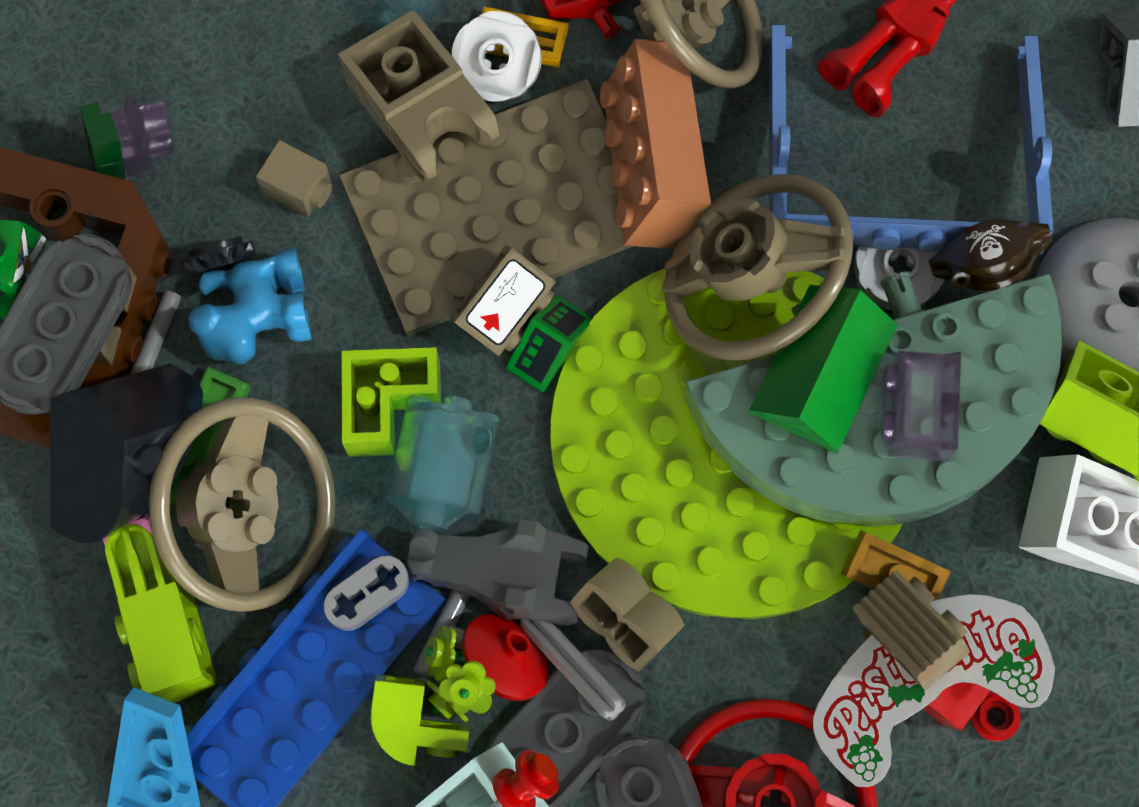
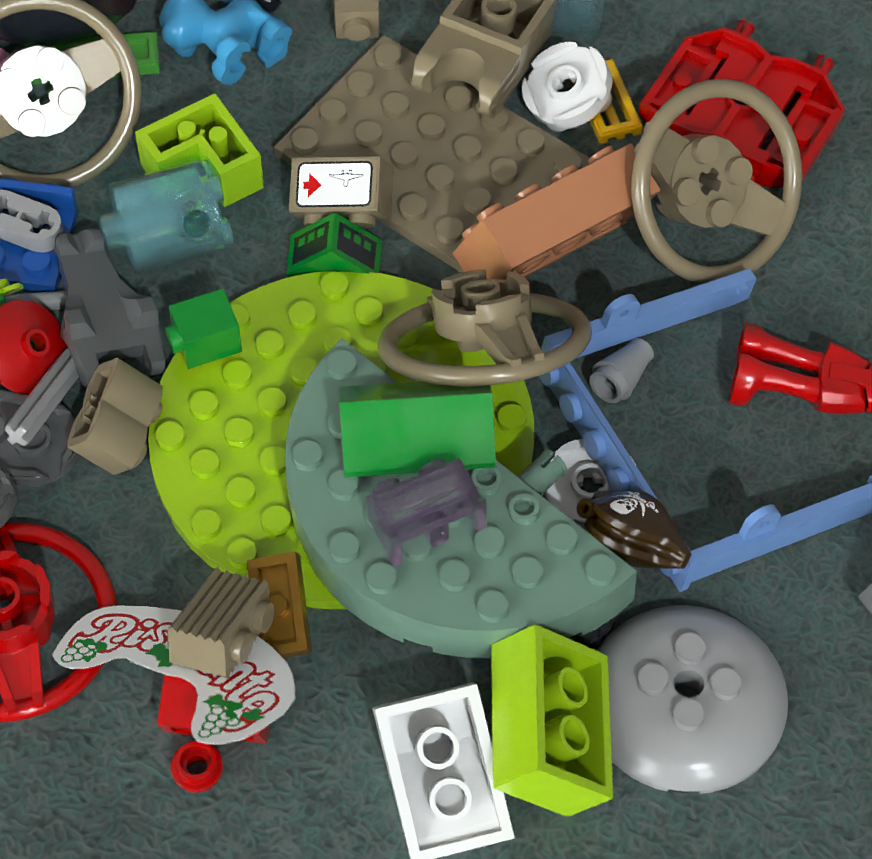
camera: 60 degrees right, 15 degrees down
(588, 492) = (203, 329): none -> green brick
(803, 165) = (619, 373): none -> light grey cone

